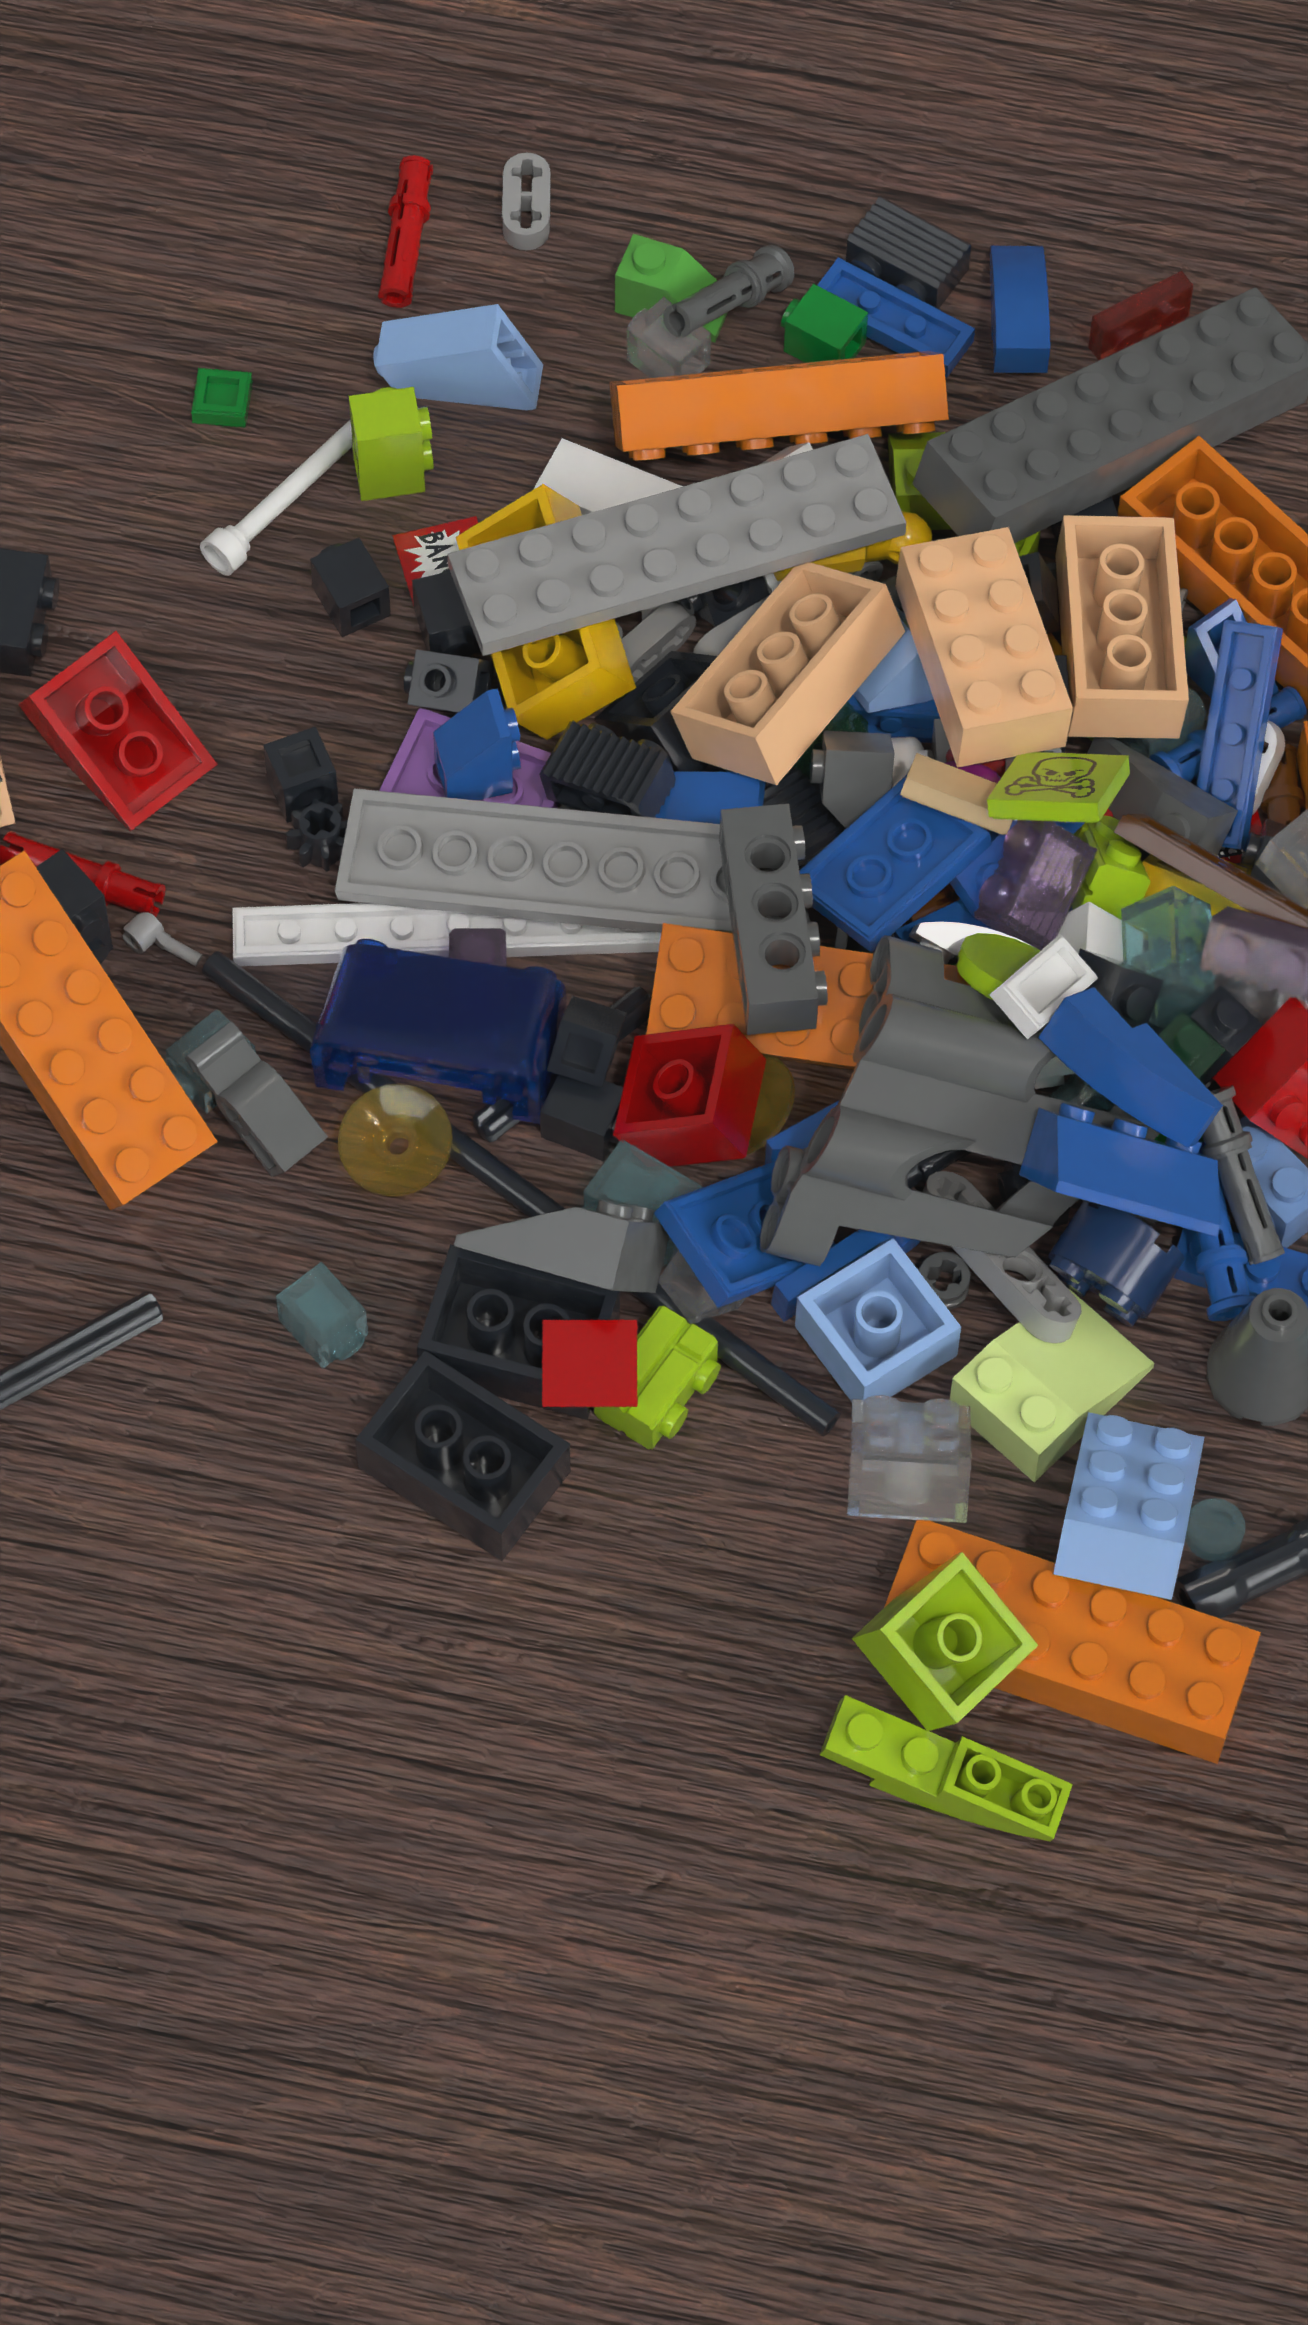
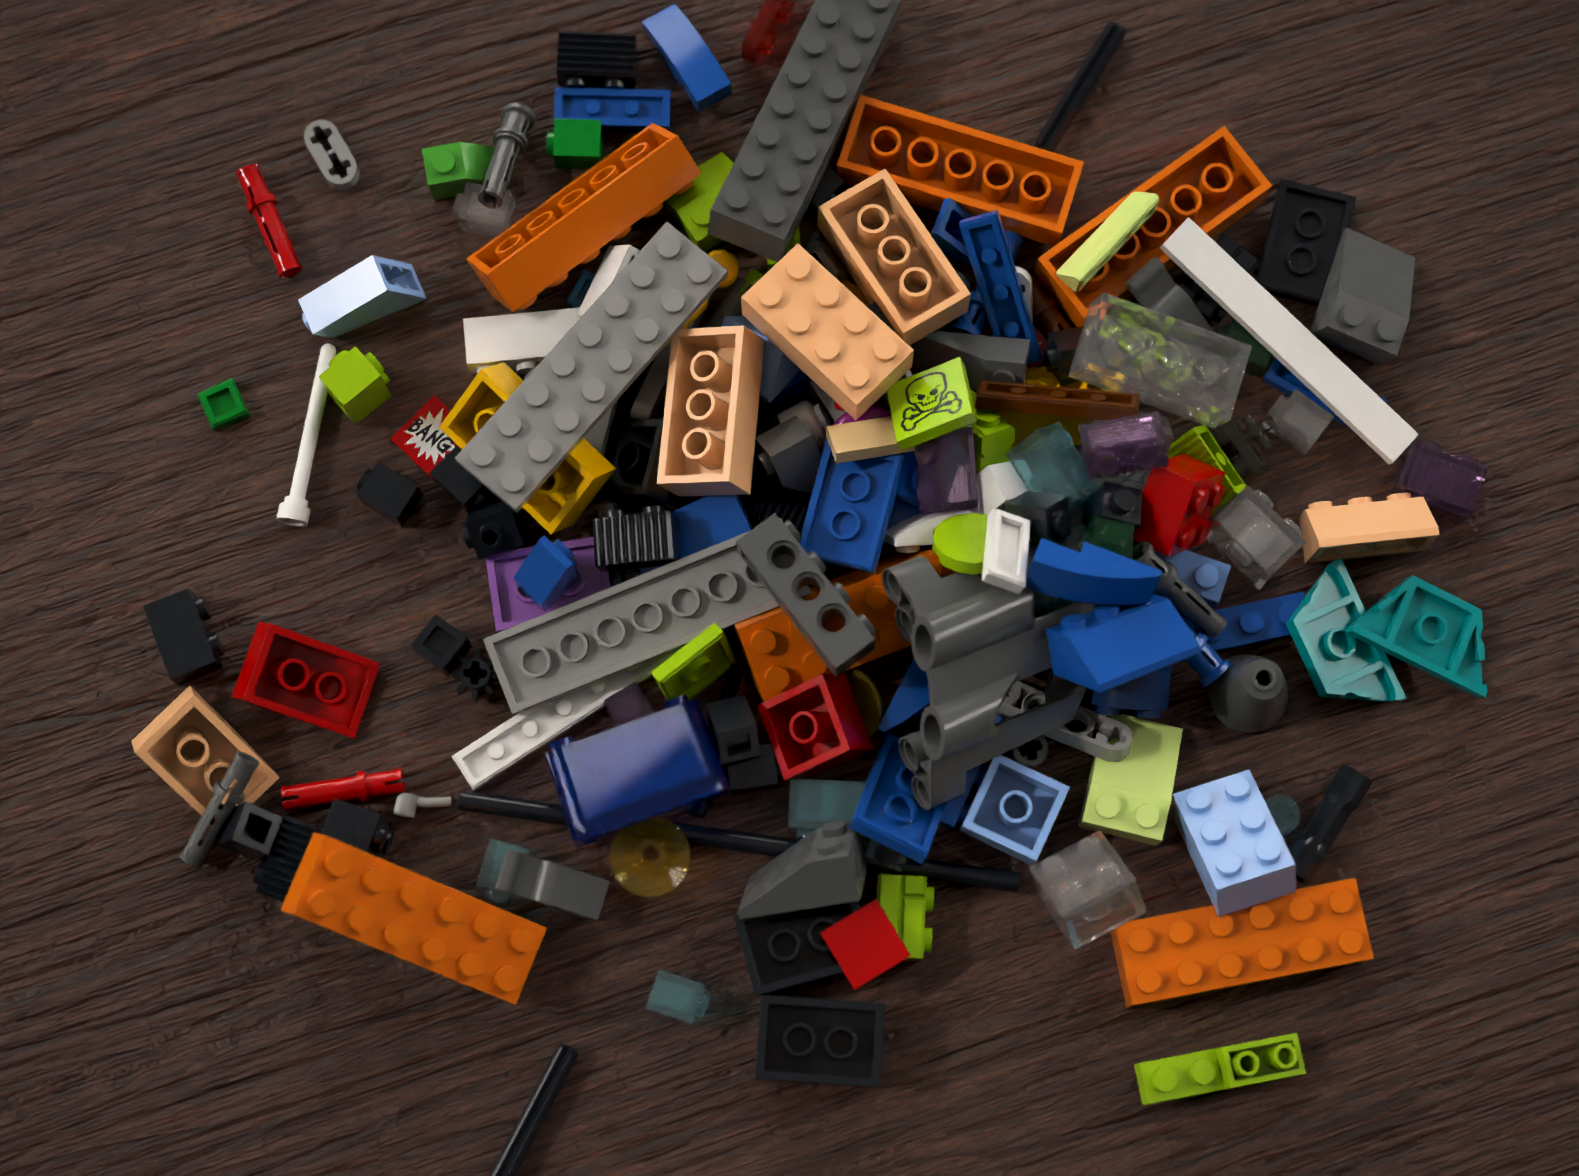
camera: 30 degrees left, 15 degrees up
(592, 949) = (695, 664): none -> lime tile
(945, 1643) = (1185, 1002): lime slope -> none

